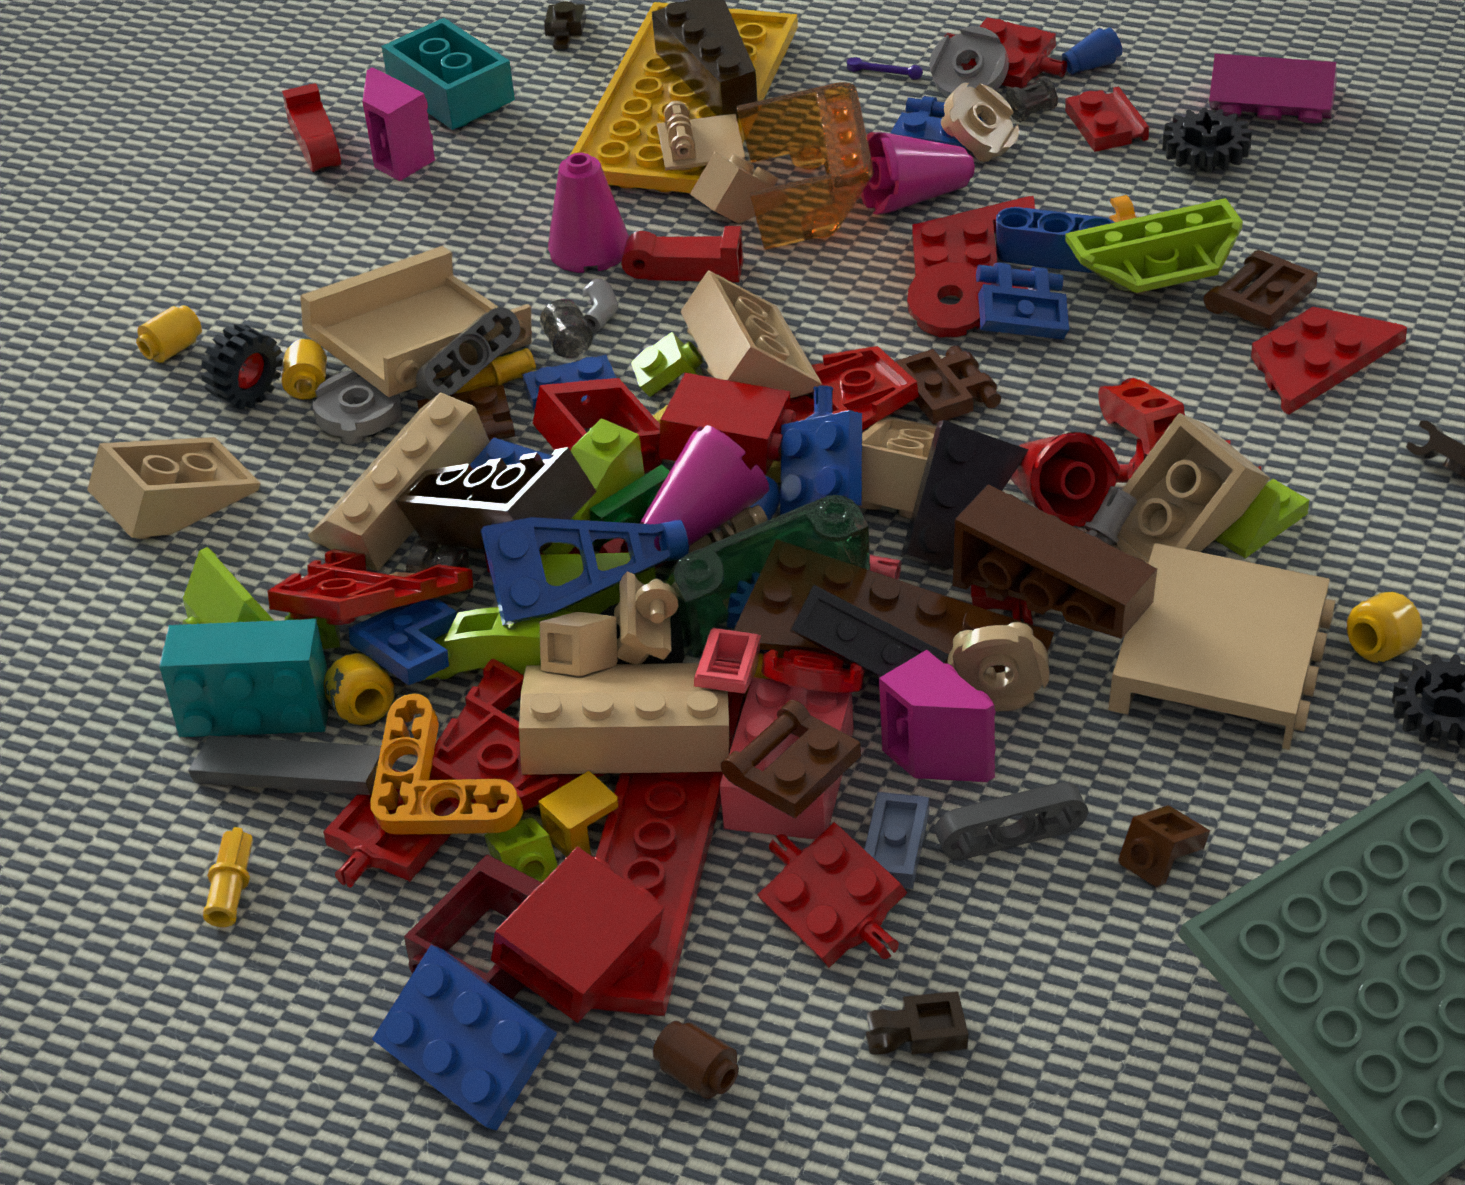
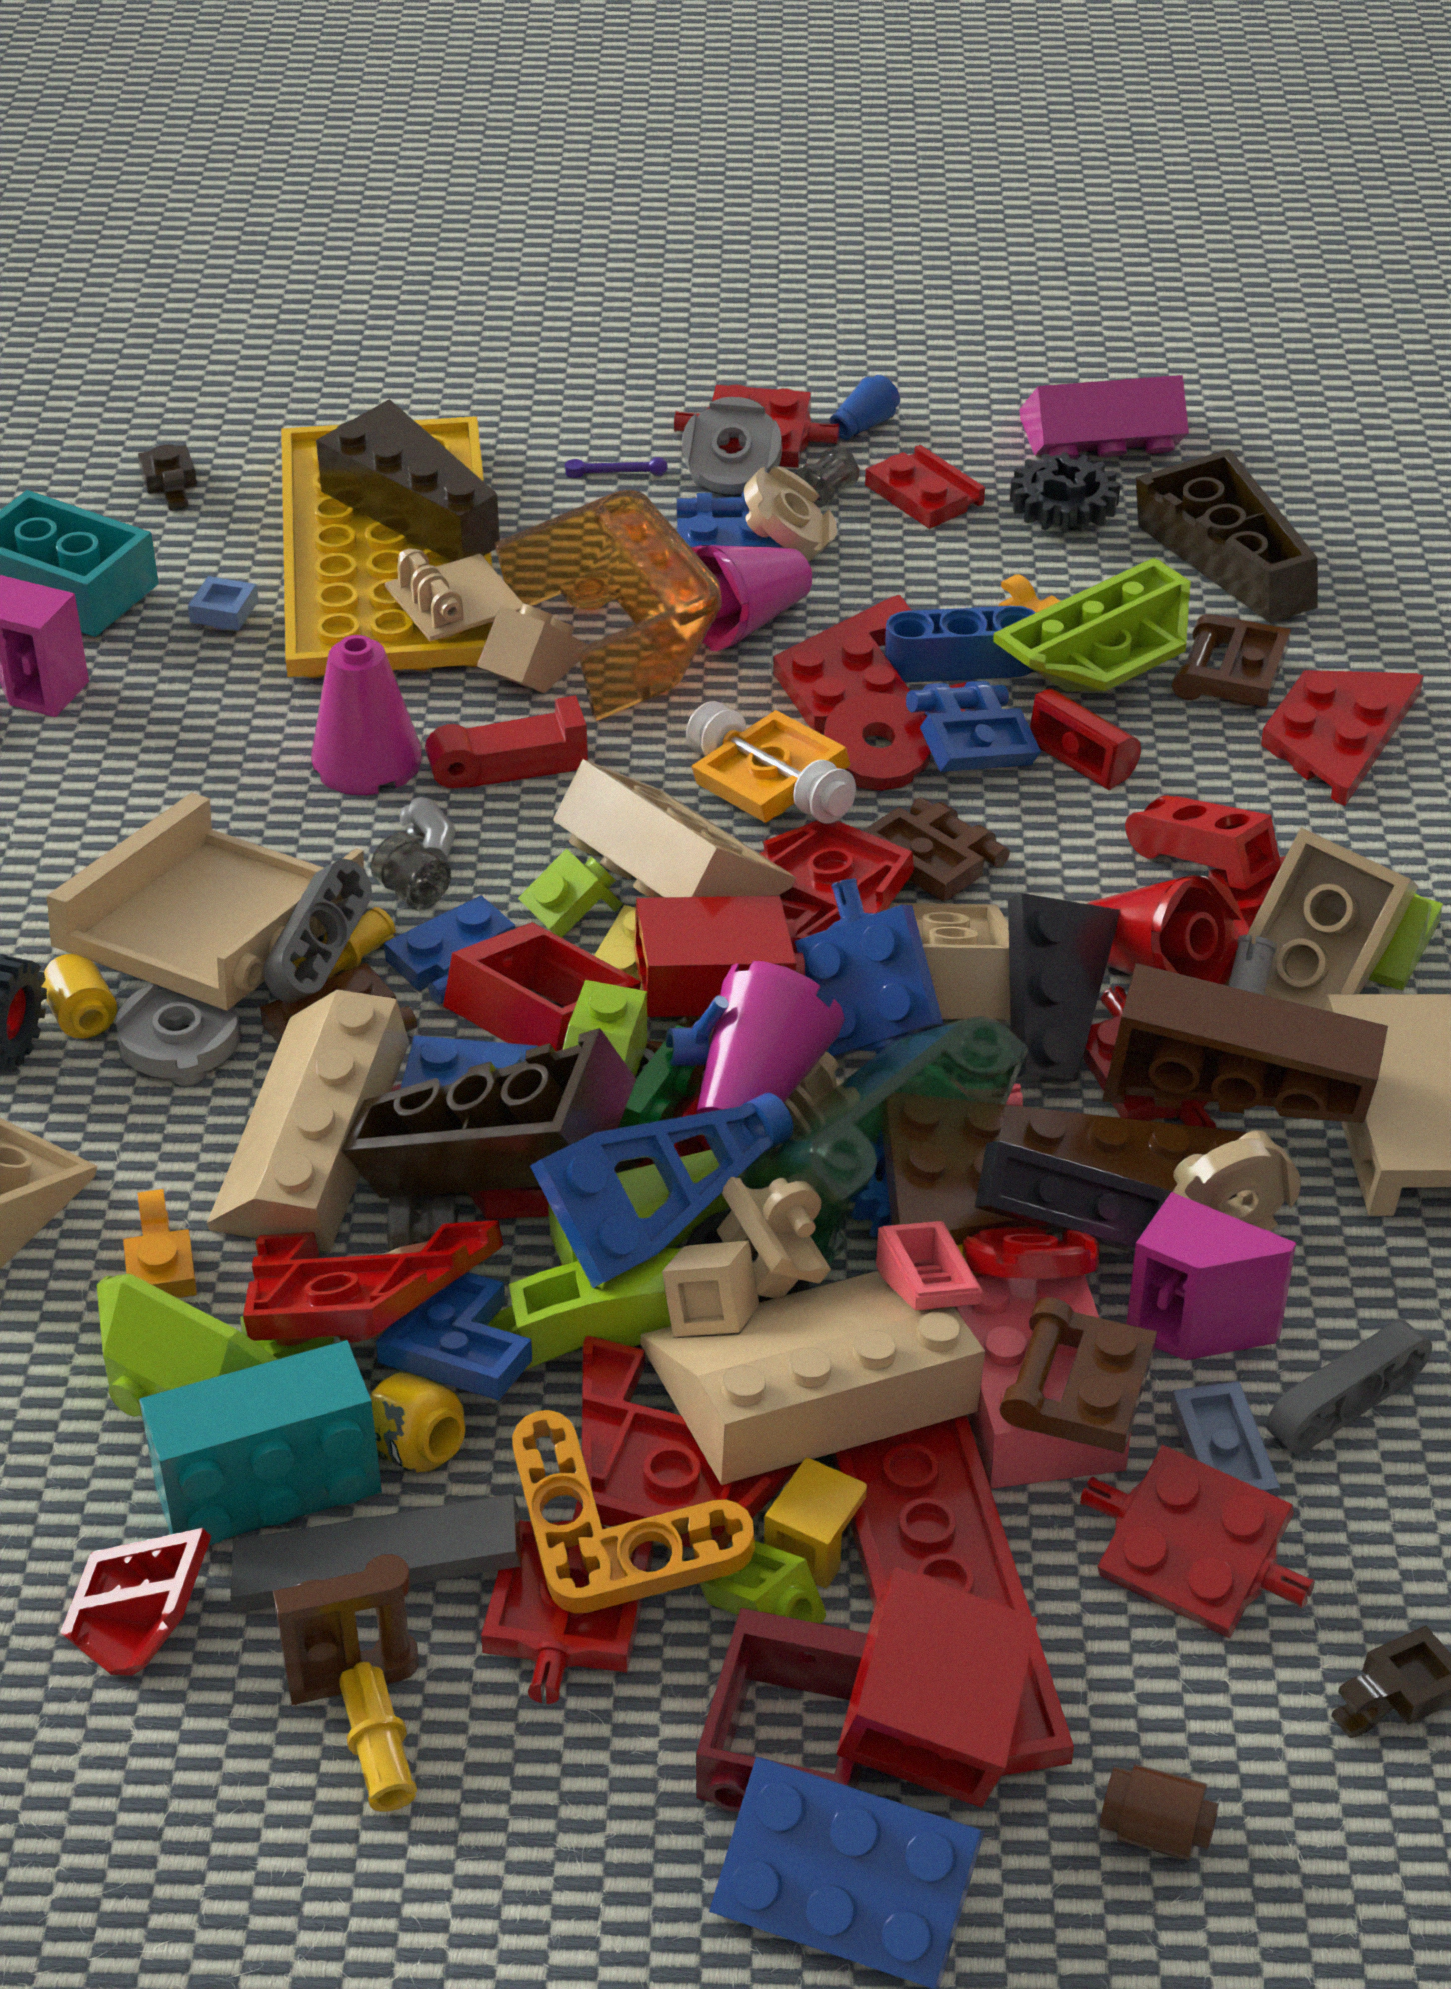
camera: 25 degrees left, 0 degrees up
(130, 756) = (134, 1599): none -> red slope
(216, 806) = (322, 1634): none -> reddish brown plate
(267, 551) = (160, 1255): none -> light orange plate
(547, 120) = (223, 603): none -> medium blue plate
(653, 475) = (692, 1044): none -> blue hand
(855, 300) = (770, 764): none -> plate
(1105, 326) = (1083, 739): none -> red brick
(1311, 190) = (1230, 533): none -> dark brown wedge

